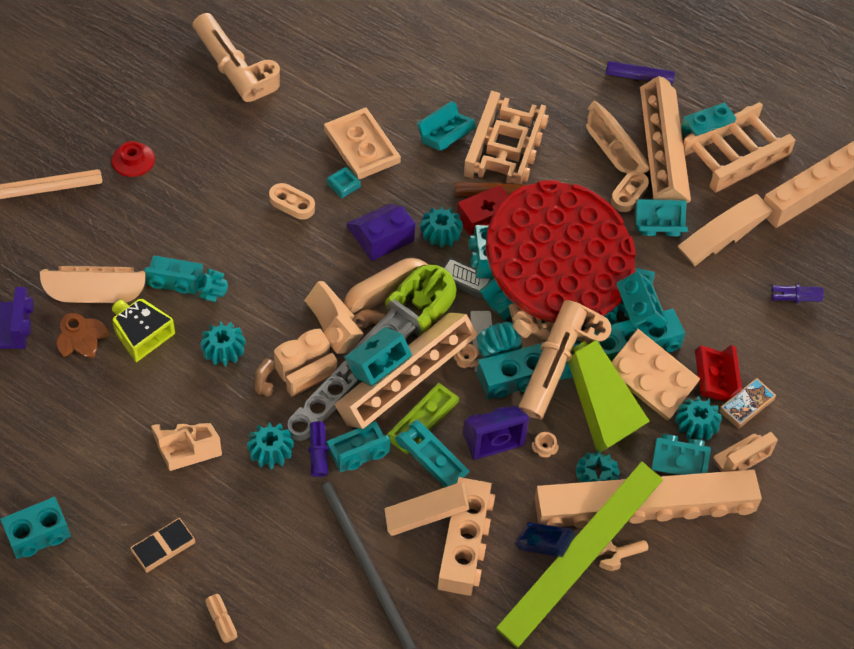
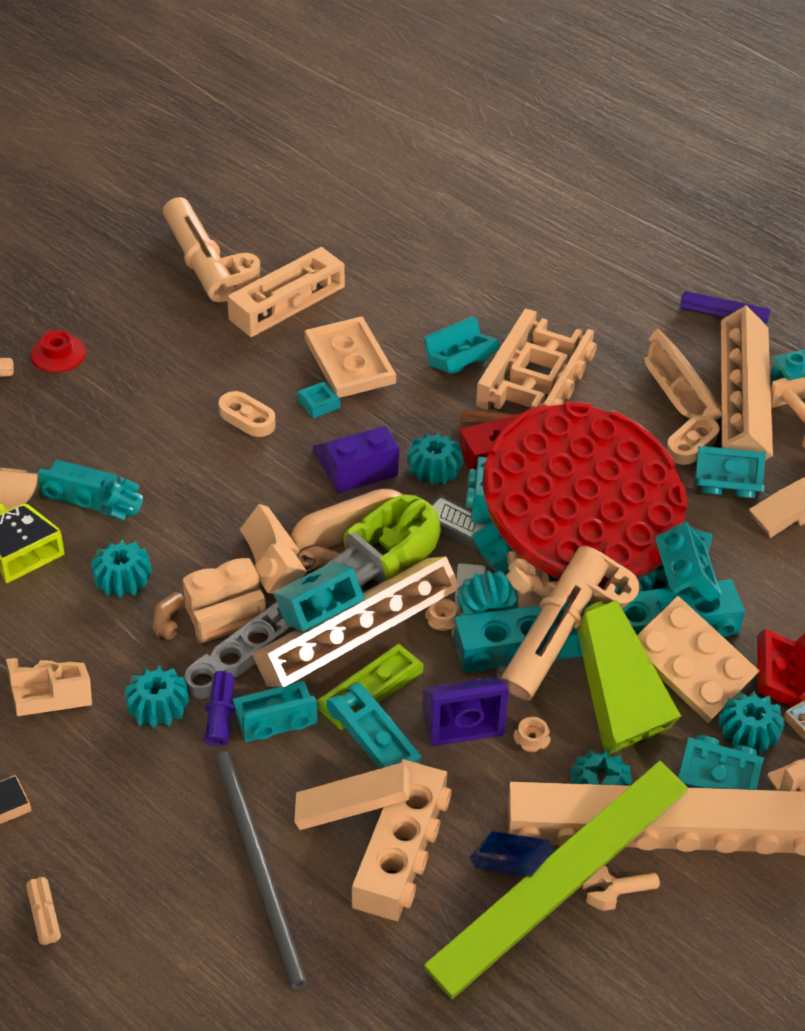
camera: 10 degrees right, 10 degrees down
(302, 89) = (286, 291): none -> light nougat brick

